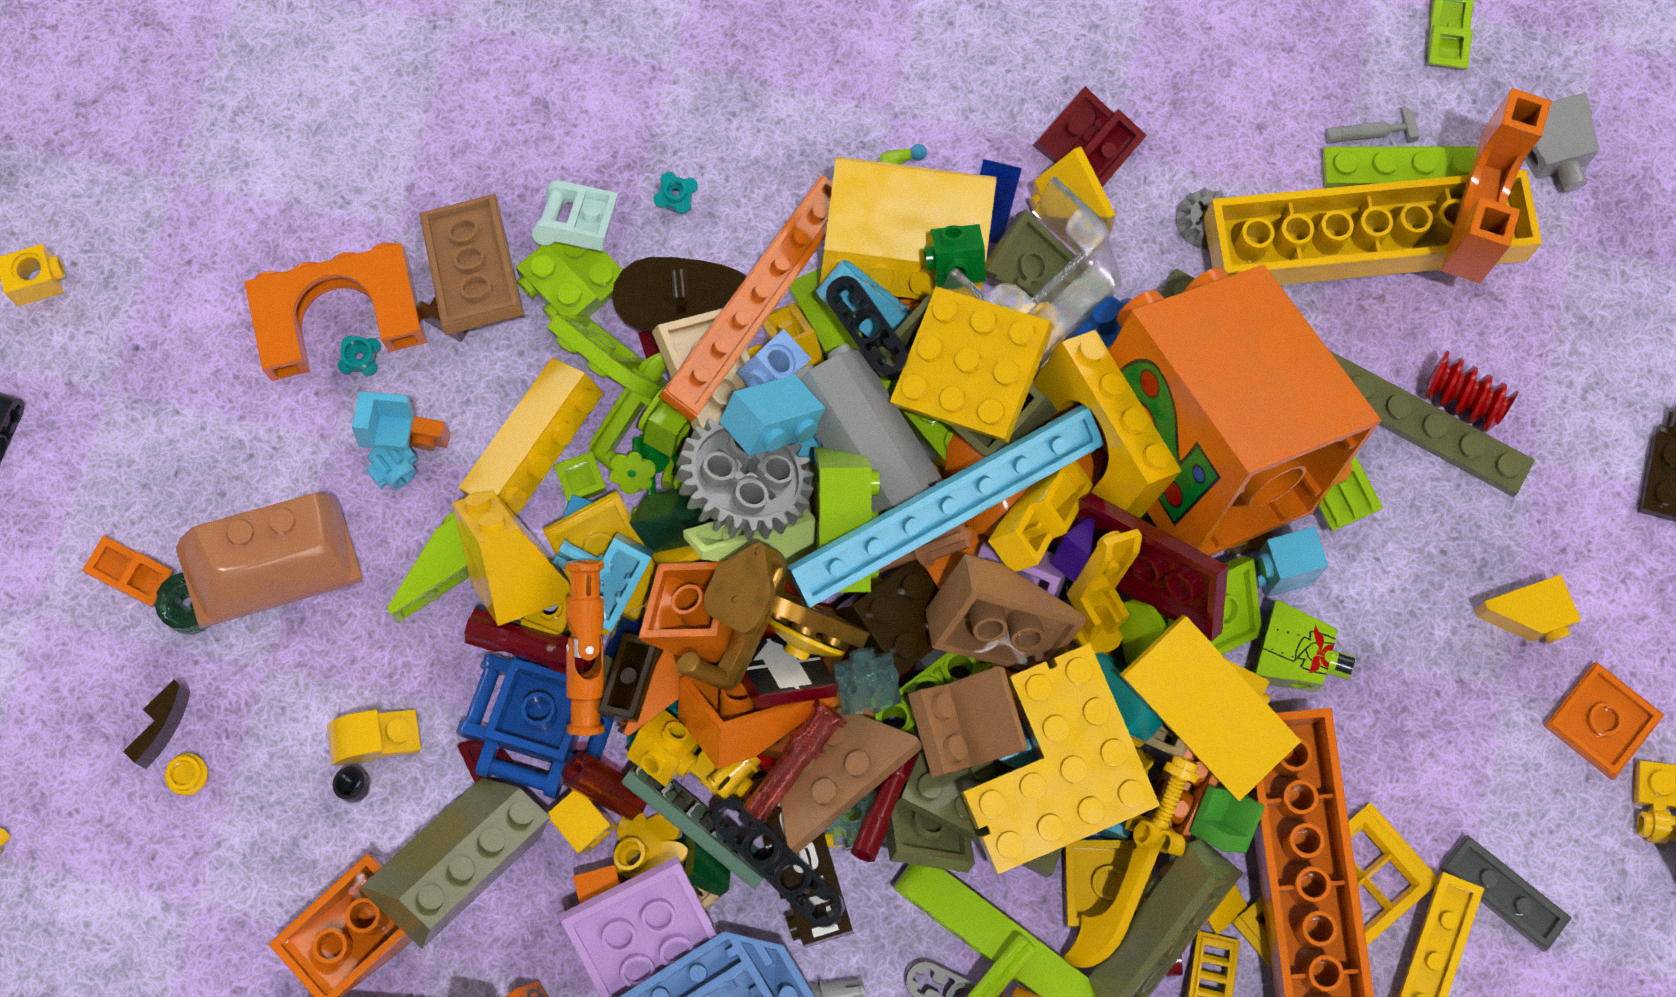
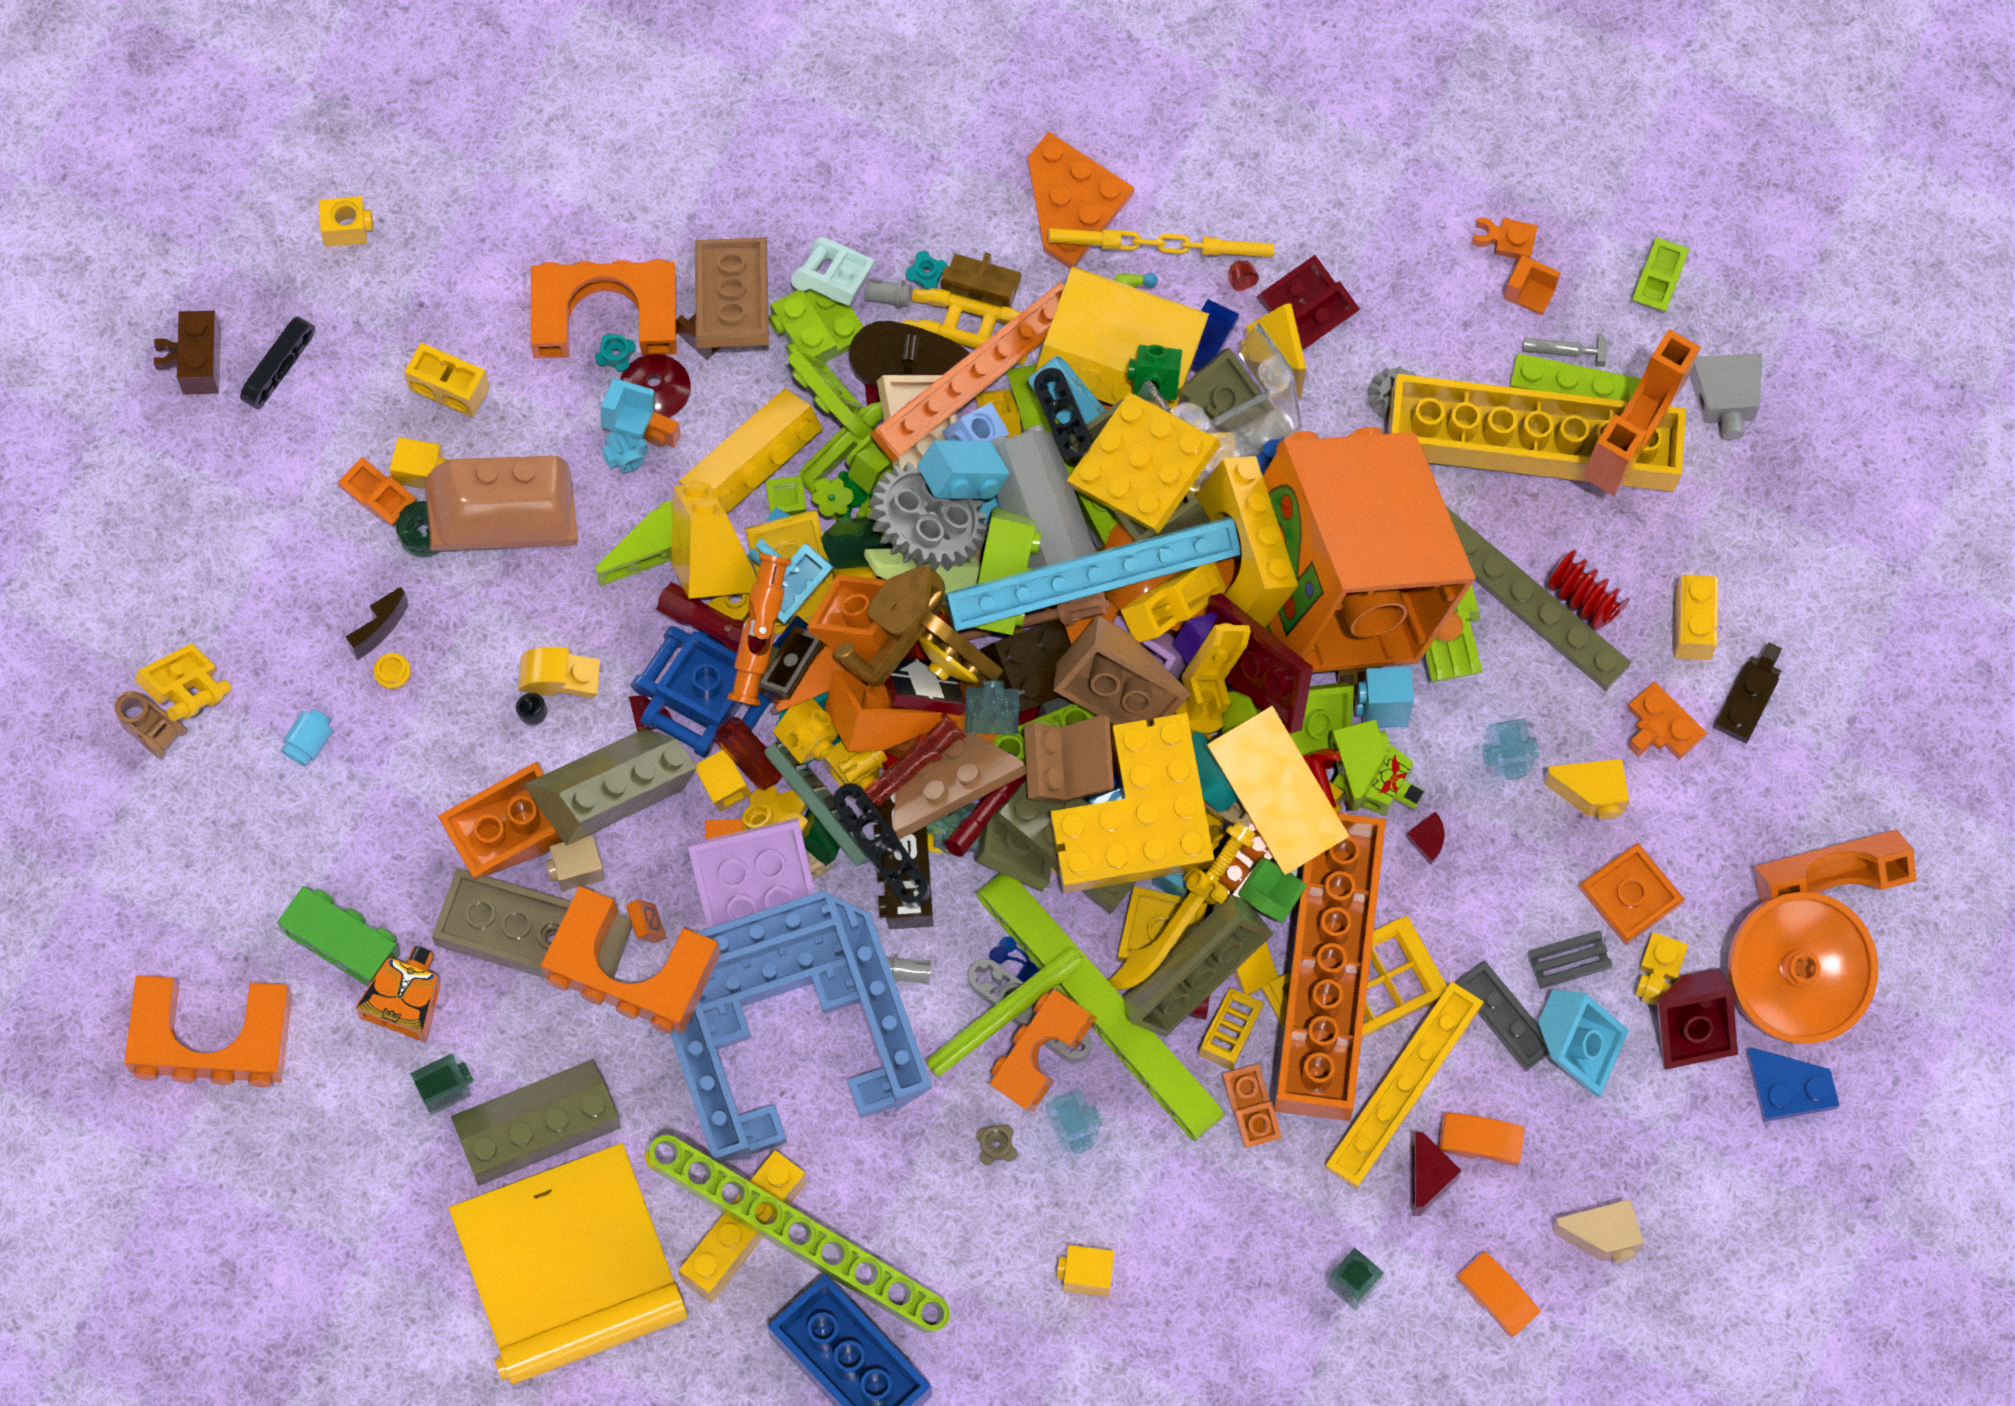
camera: 10 degrees right, 5 degrees down
(105, 875) = (306, 737): none -> medium azure brick
(161, 528) = (414, 461): none -> yellow brick
(178, 429) = (447, 380): none -> yellow brick
(431, 380) = (675, 383): none -> dark red dish
(439, 959) = (575, 864): none -> tan brick
(640, 225) = (888, 292): none -> light grey pin
(717, 223) = (955, 305): none -> yellow piece
(736, 192) = (981, 280): none -> pearl gold panel
(813, 81) = (1072, 195): none -> orange plate
(867, 115) = (1112, 240): none -> yellow piece
(935, 952) = (1000, 955): none -> clear blue piece
(1016, 121) = (1242, 275): none -> clear red hinge
(1235, 655) = (1318, 762): none -> red plant
(1283, 643) = (1362, 758): none -> lime slope
(1285, 24) = (1512, 238): none -> orange plate
(1321, 70) = (1532, 285): none -> orange panel
(1370, 706) = (1428, 837): none -> dark red tile
(1434, 588) = (1510, 749): none -> clear light blue brick
(1585, 520) = (1663, 724): none -> orange hinge
(1588, 793) = (1599, 950): none -> dark grey tile
(1592, 395) = (1696, 617): none -> yellow brick
(1597, 902) = (1582, 1037): none -> medium azure slope

